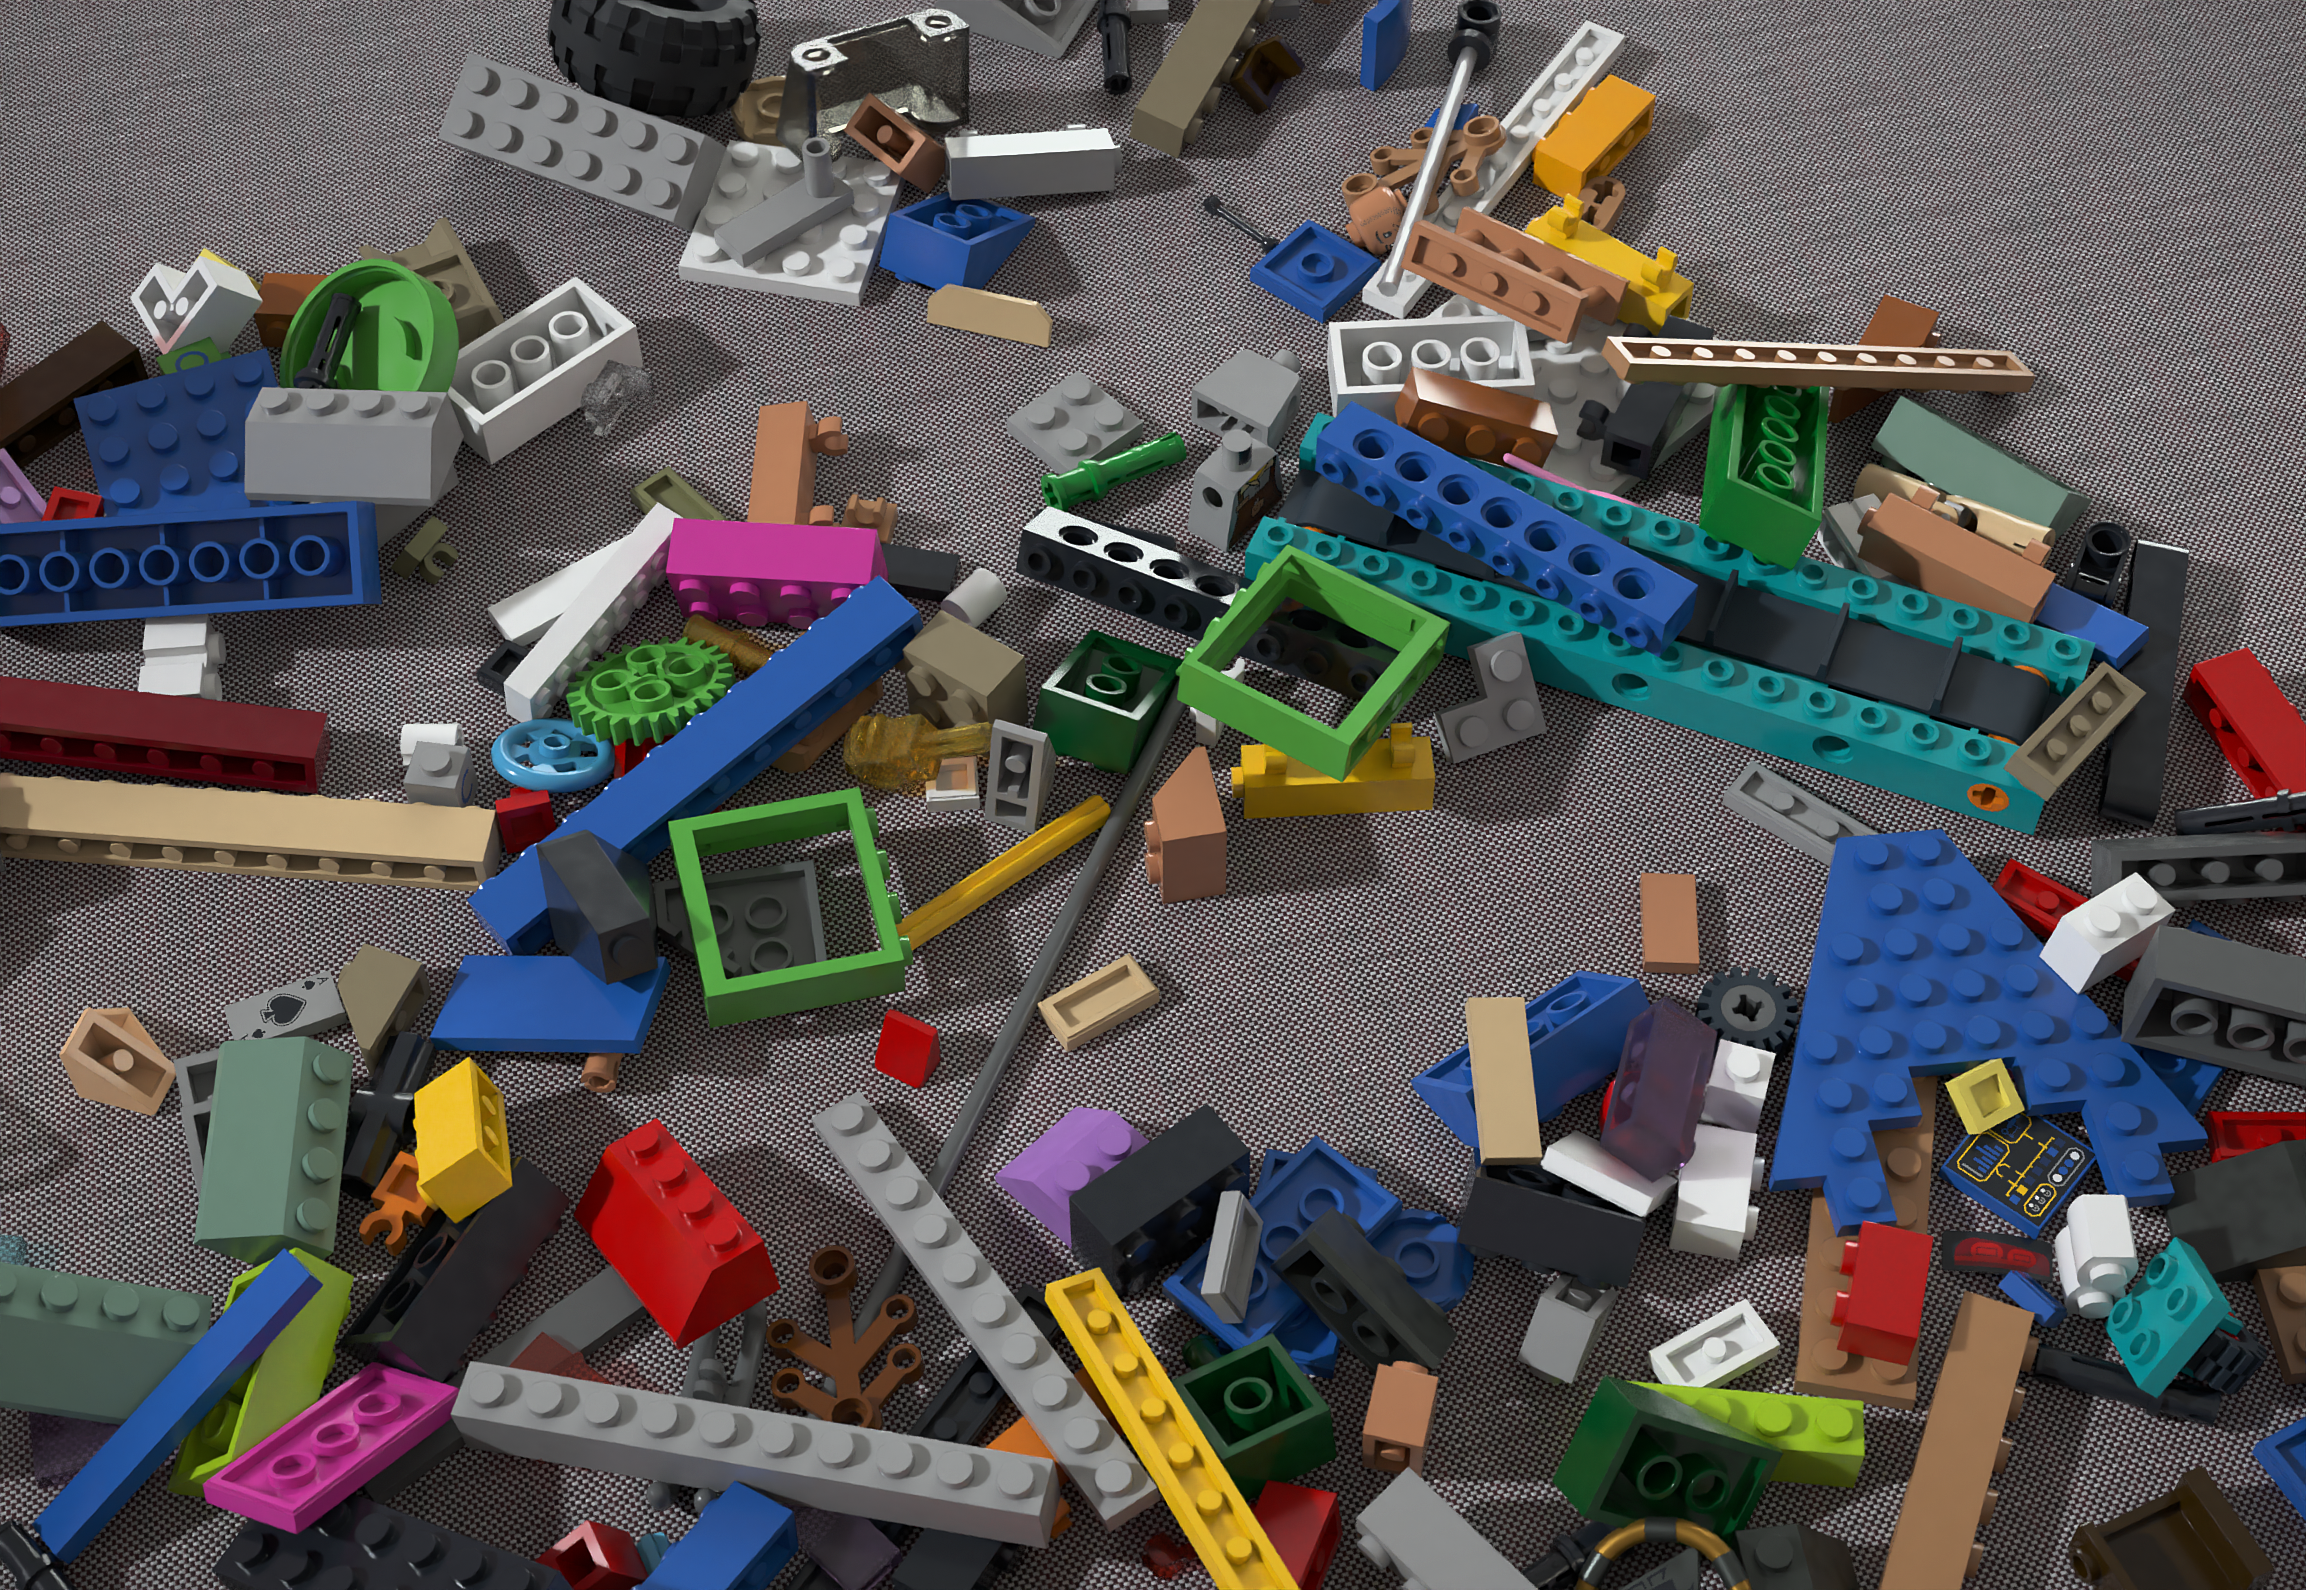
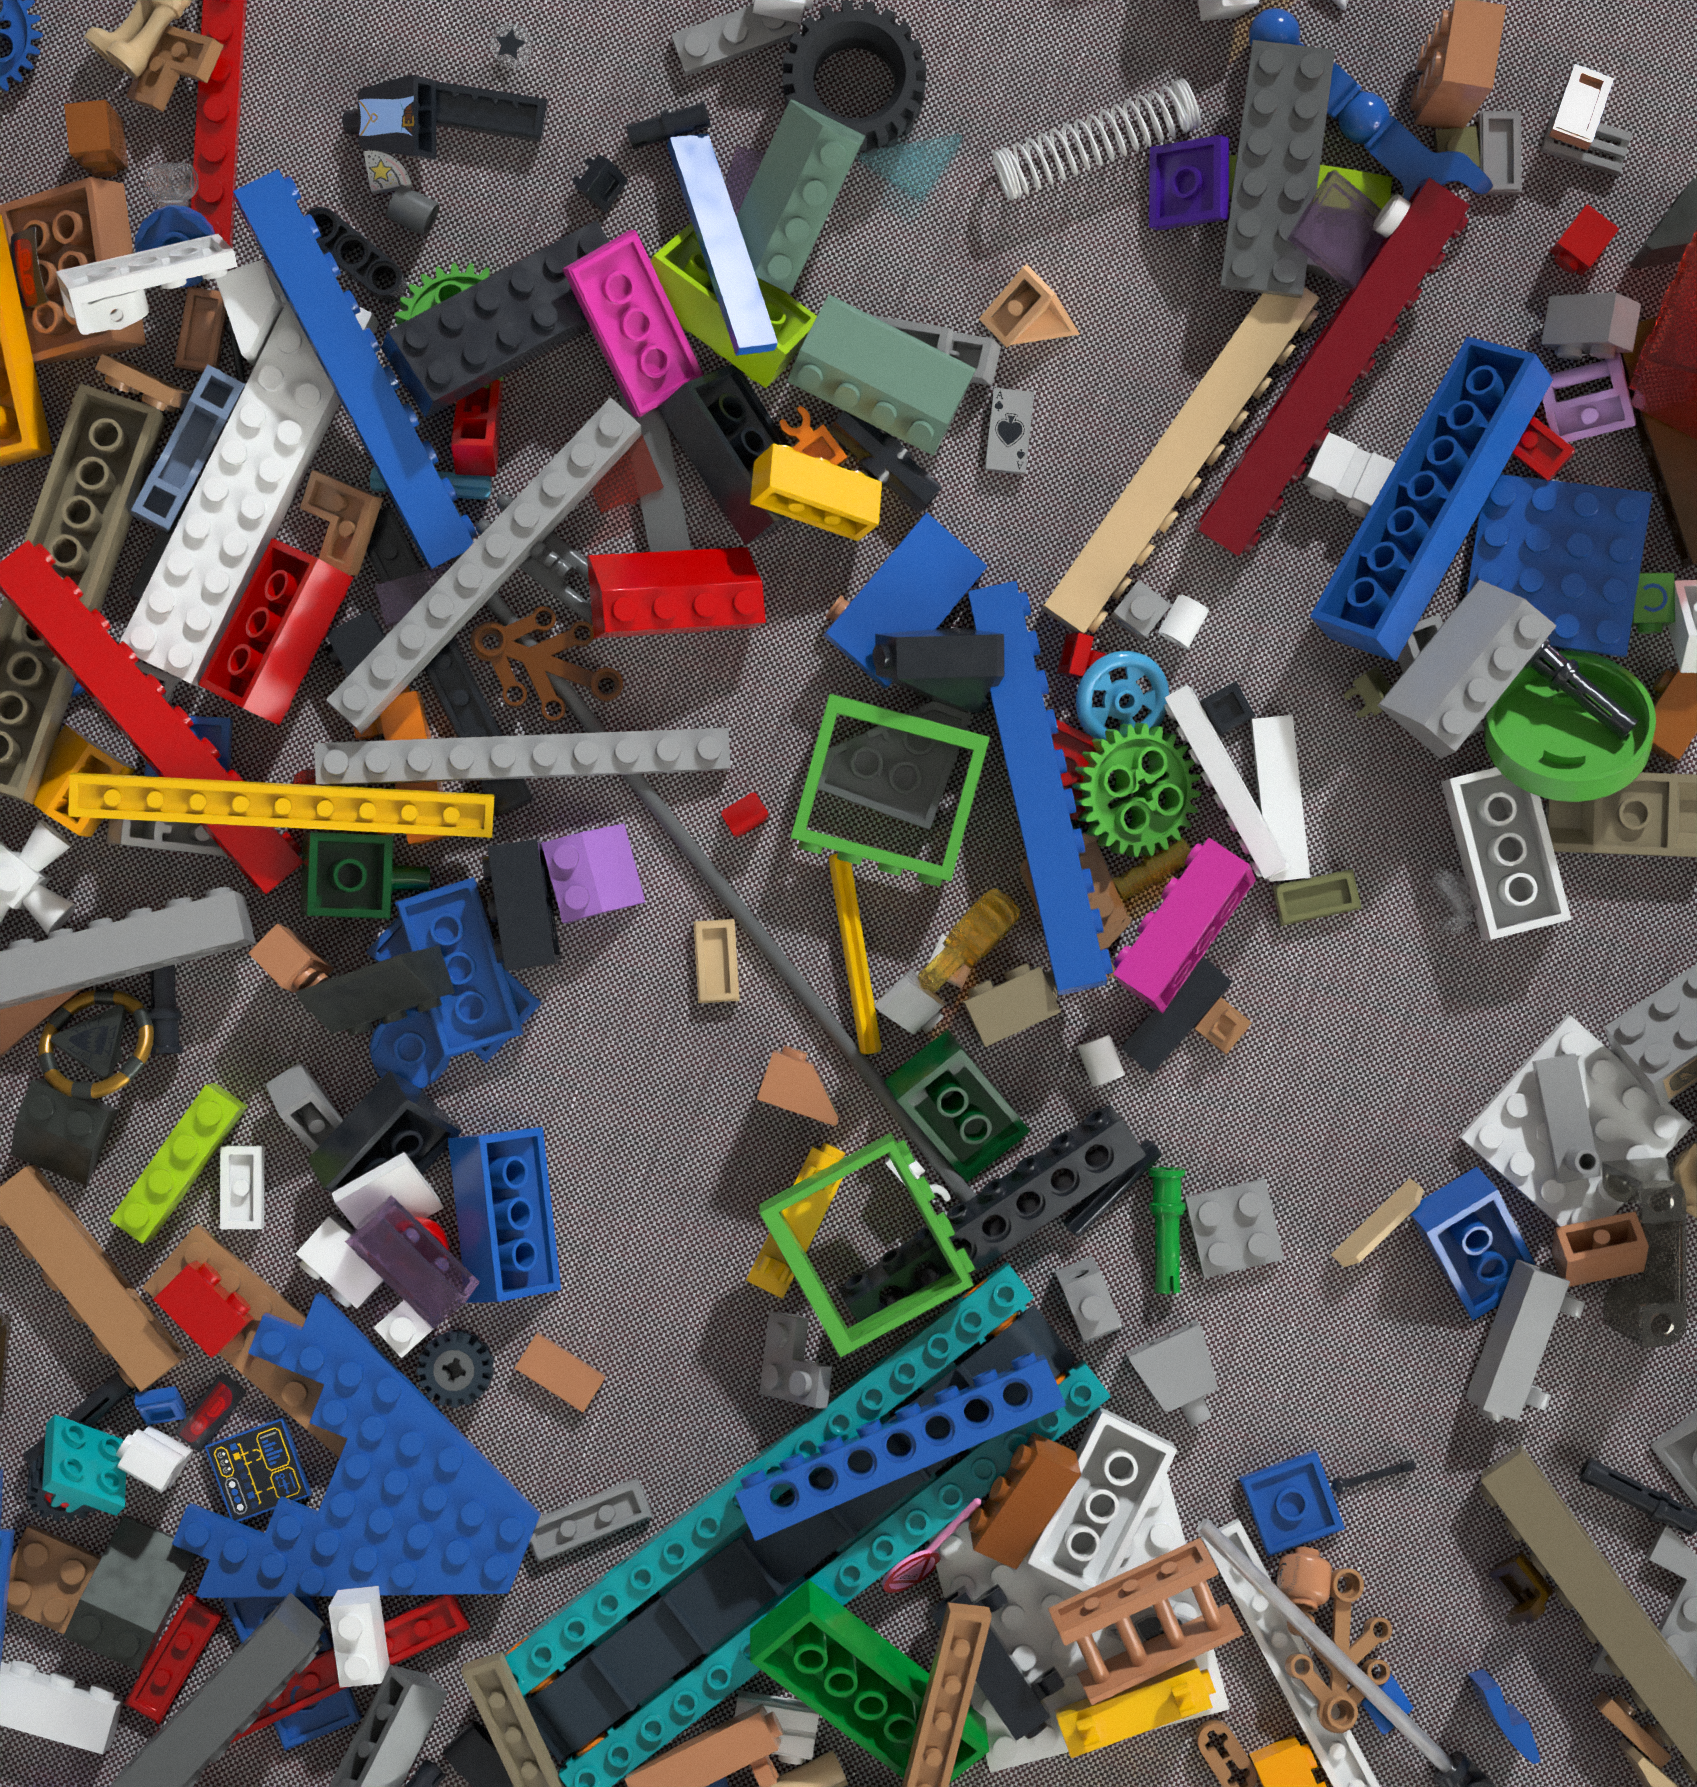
camera: 120 degrees right, 35 degrees up
(381, 998) = (976, 491): dark tan slope -> none
(787, 464) = (1285, 979): nougat brick -> none
(1232, 1257) = (452, 923): light grey tile -> none
(1503, 1081) = (469, 1163): tan tile -> none
(1662, 1459) = (169, 1091): dark green slope -> none
(1984, 1096) = (303, 1474): light yellow tile -> none

